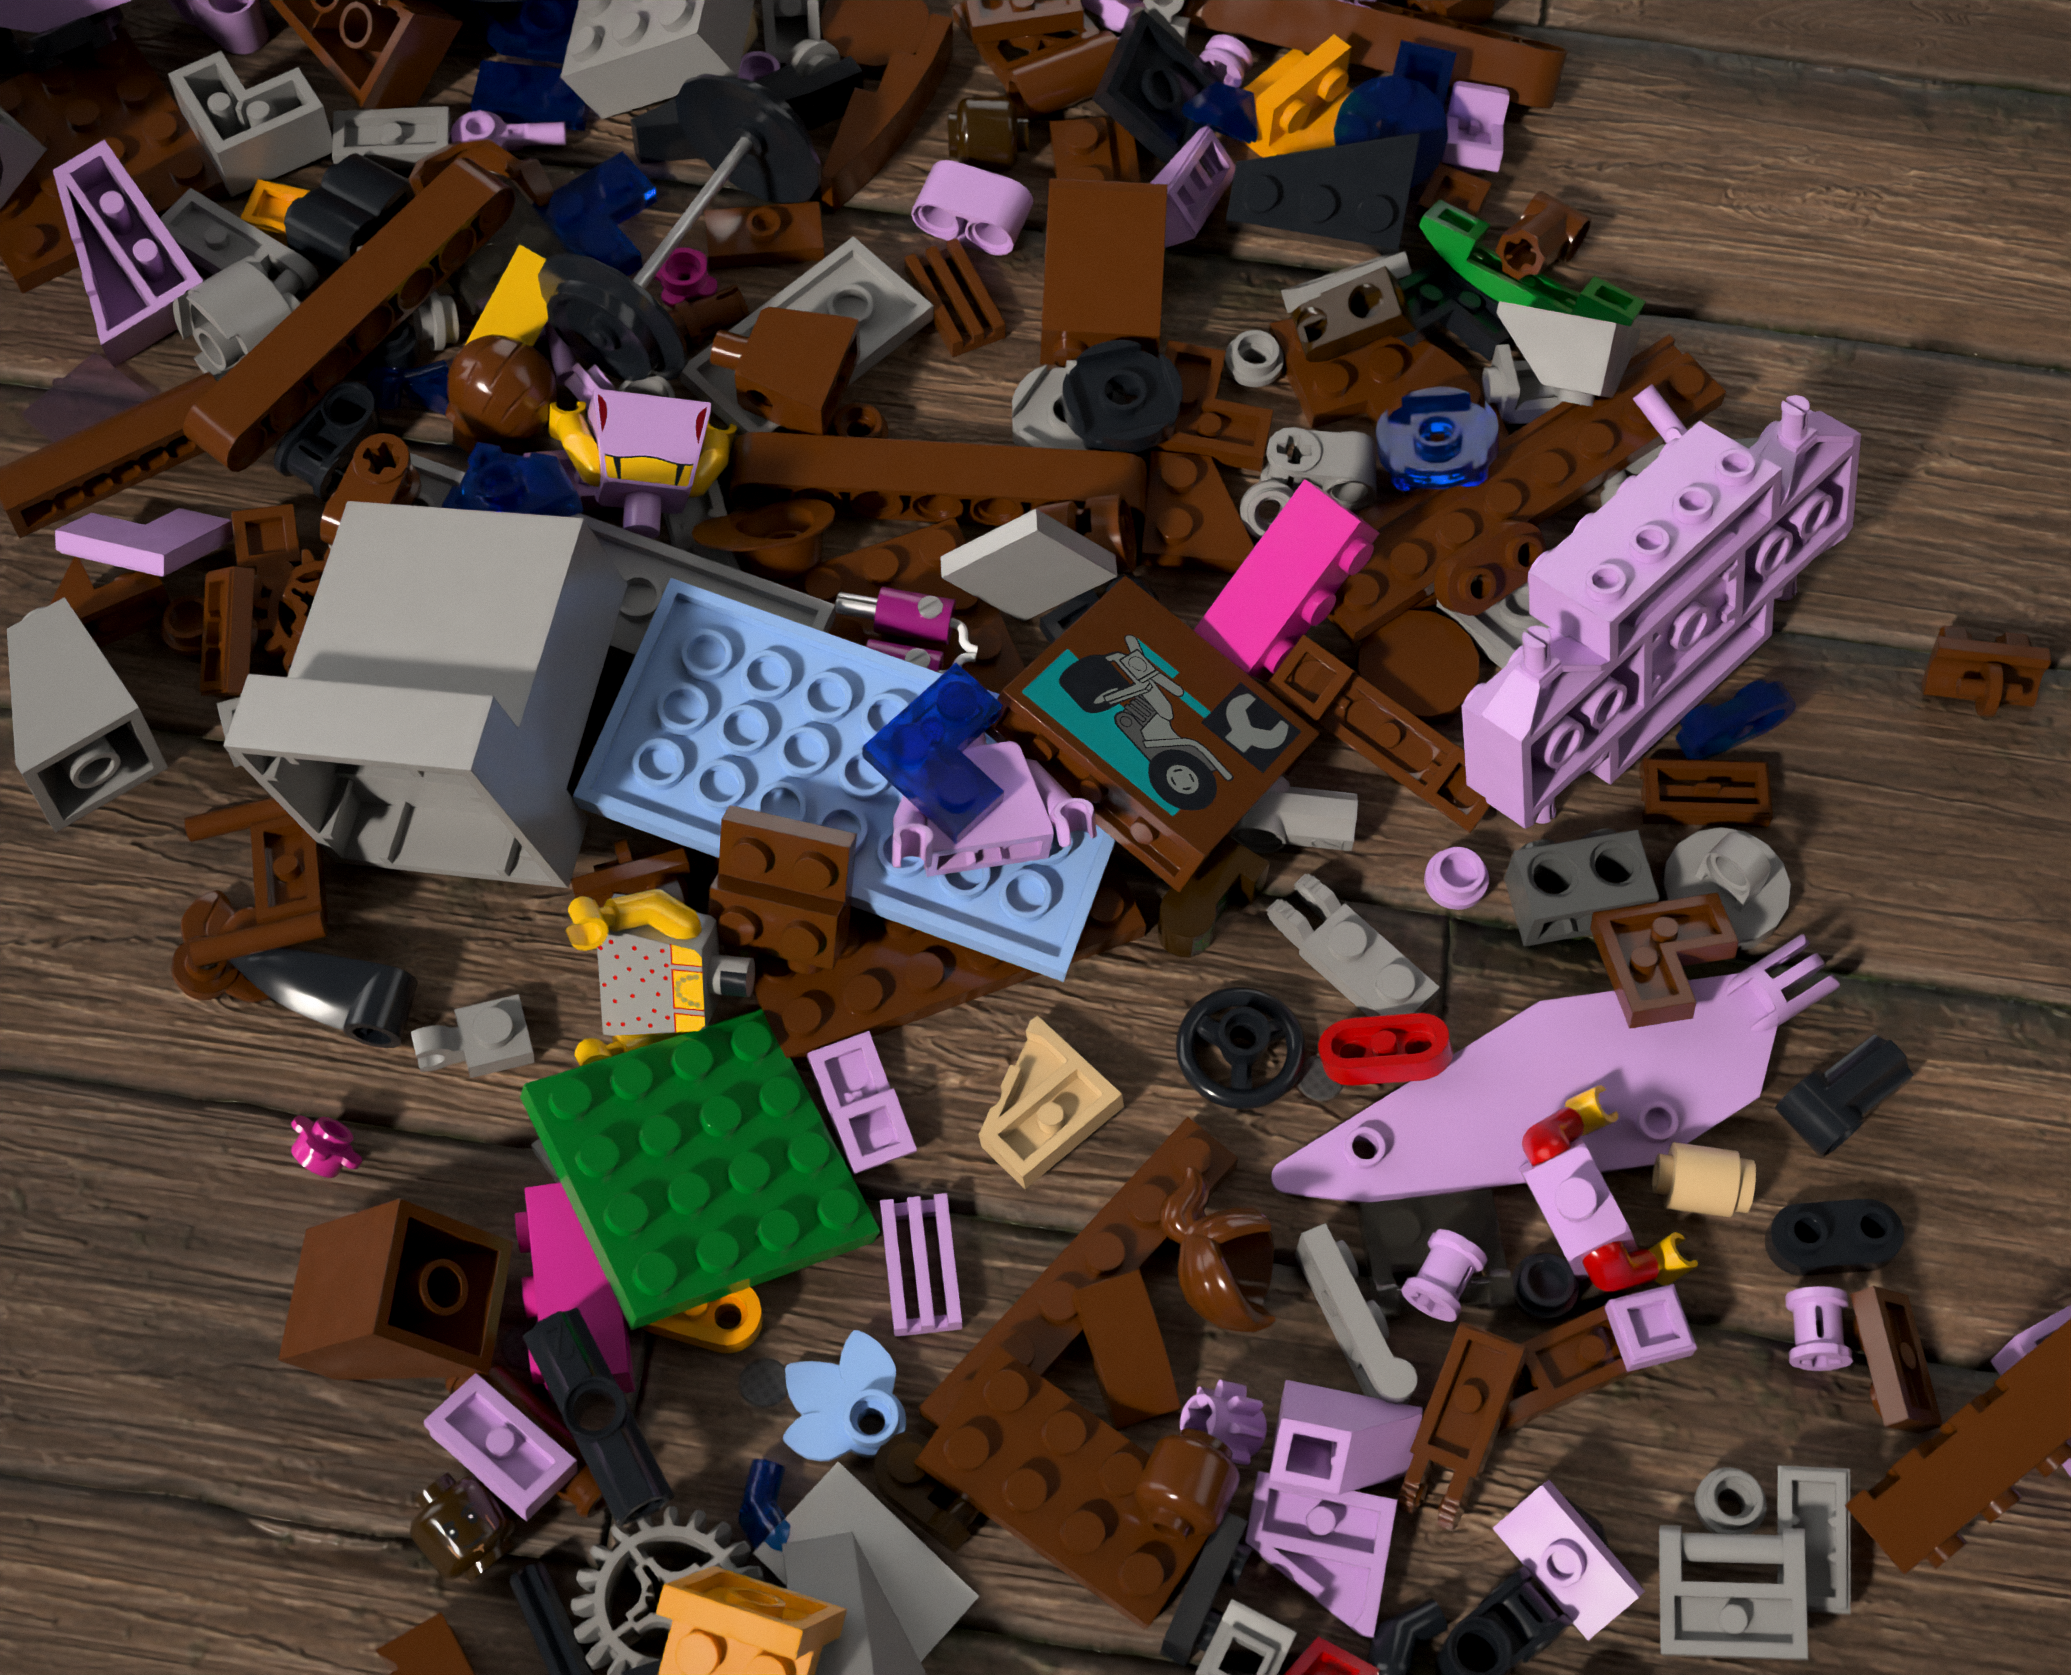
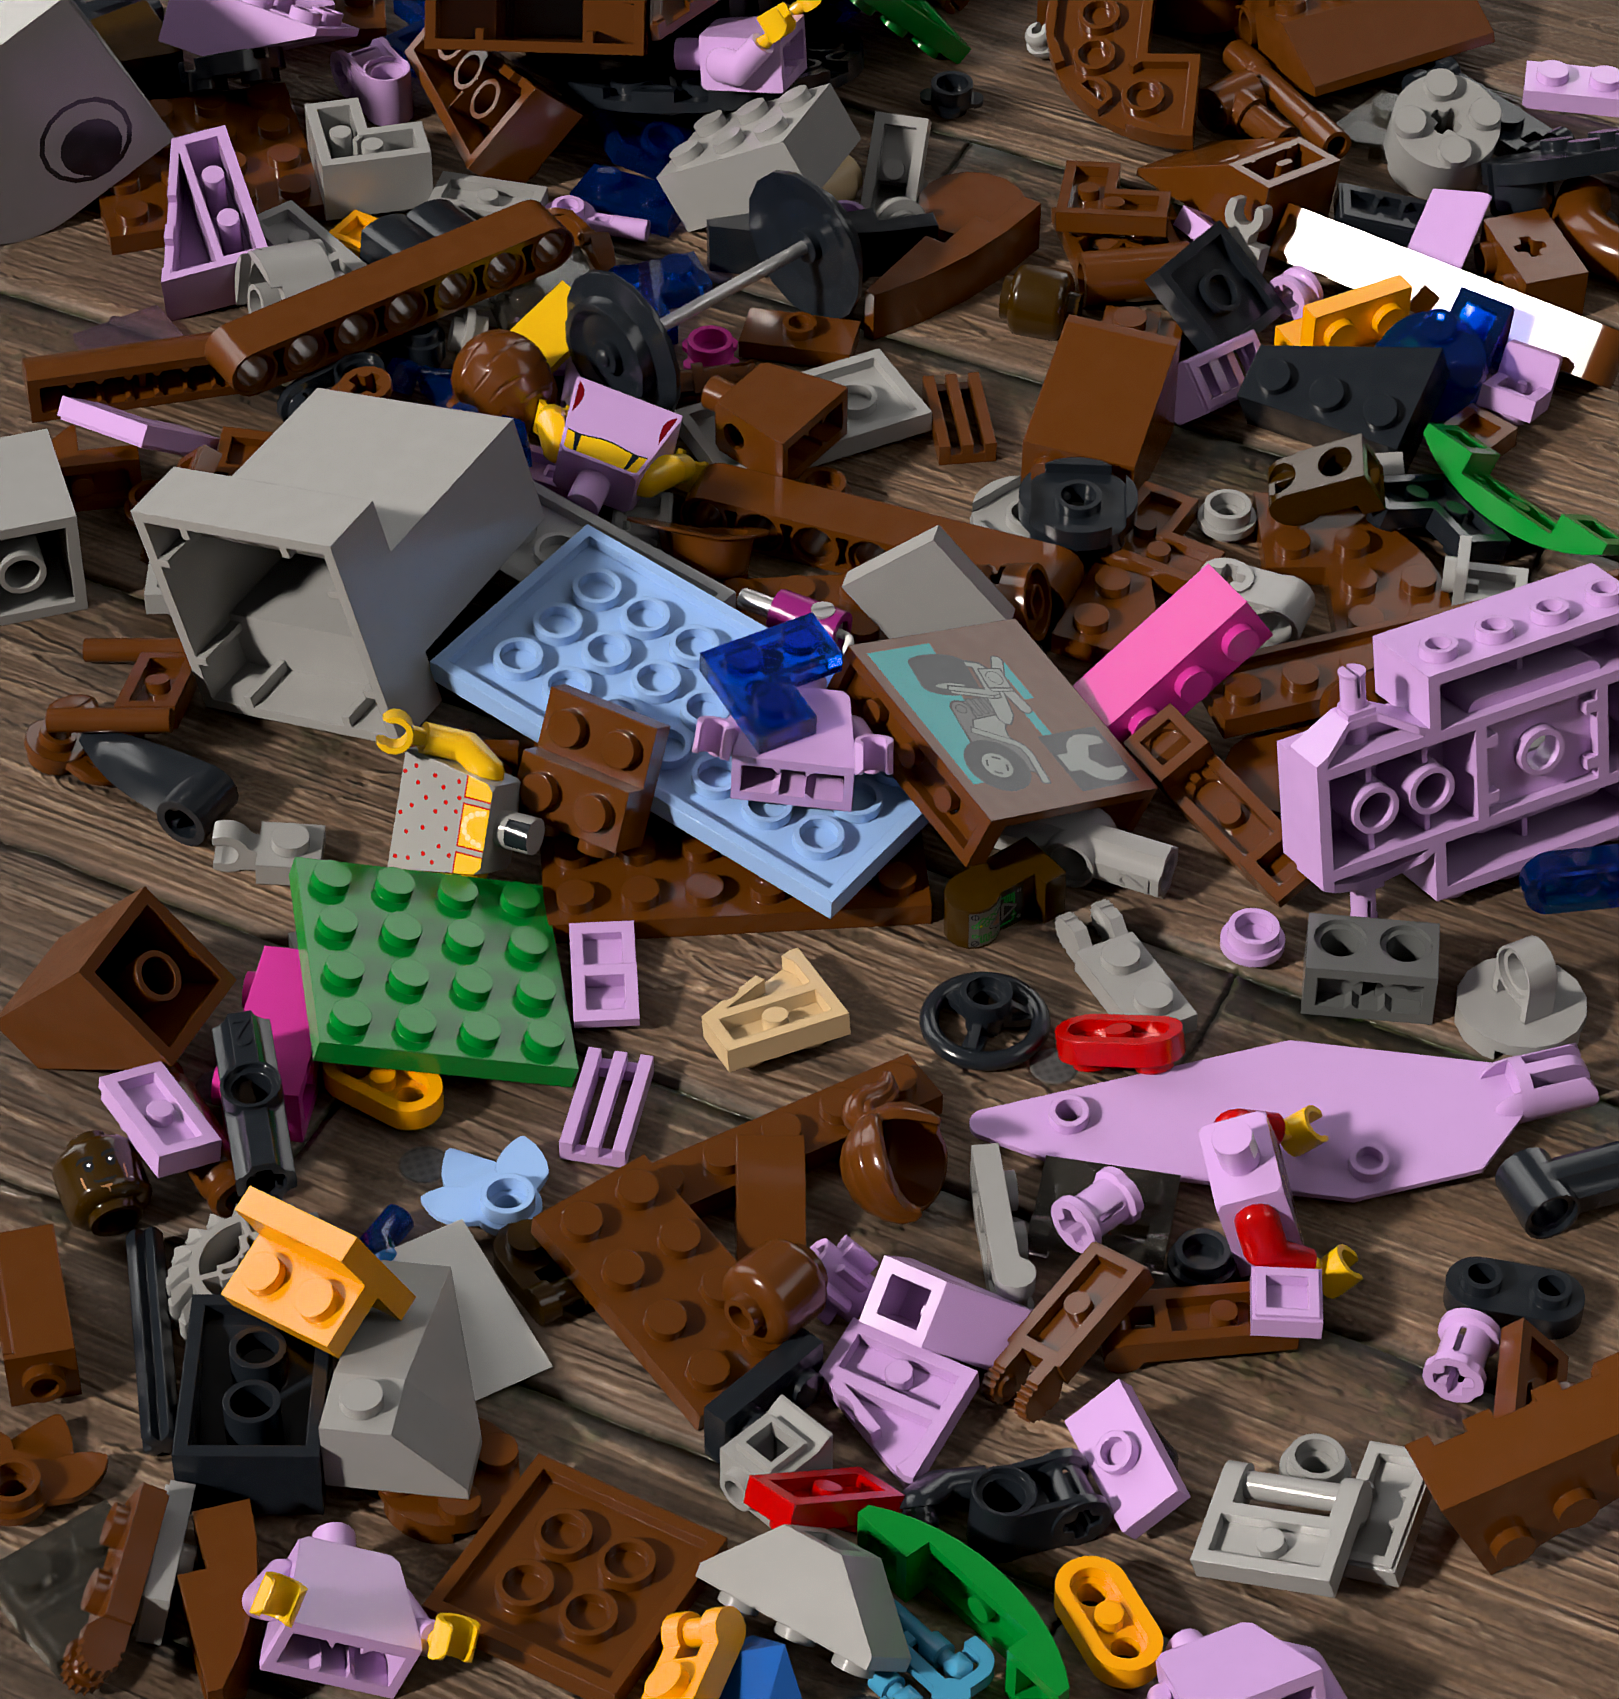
camera: 20 degrees right, 20 degrees down
(324, 1146) = (100, 886): dark pink plate -> none
(972, 206) = (1003, 349): lavender beam -> none
(1225, 110) = (1274, 321): clear blue slope -> none
(1418, 462) = (1369, 591): clear blue plate -> none
(1542, 235) = (1550, 475): reddish brown piece -> none
(1571, 351) = (1527, 537): light grey slope -> none
(1649, 946) = (1409, 1016): reddish brown plate -> none
(1704, 1180) = (1395, 1214): tan brick -> none
(1706, 801) = (1505, 919): reddish brown tile -> none

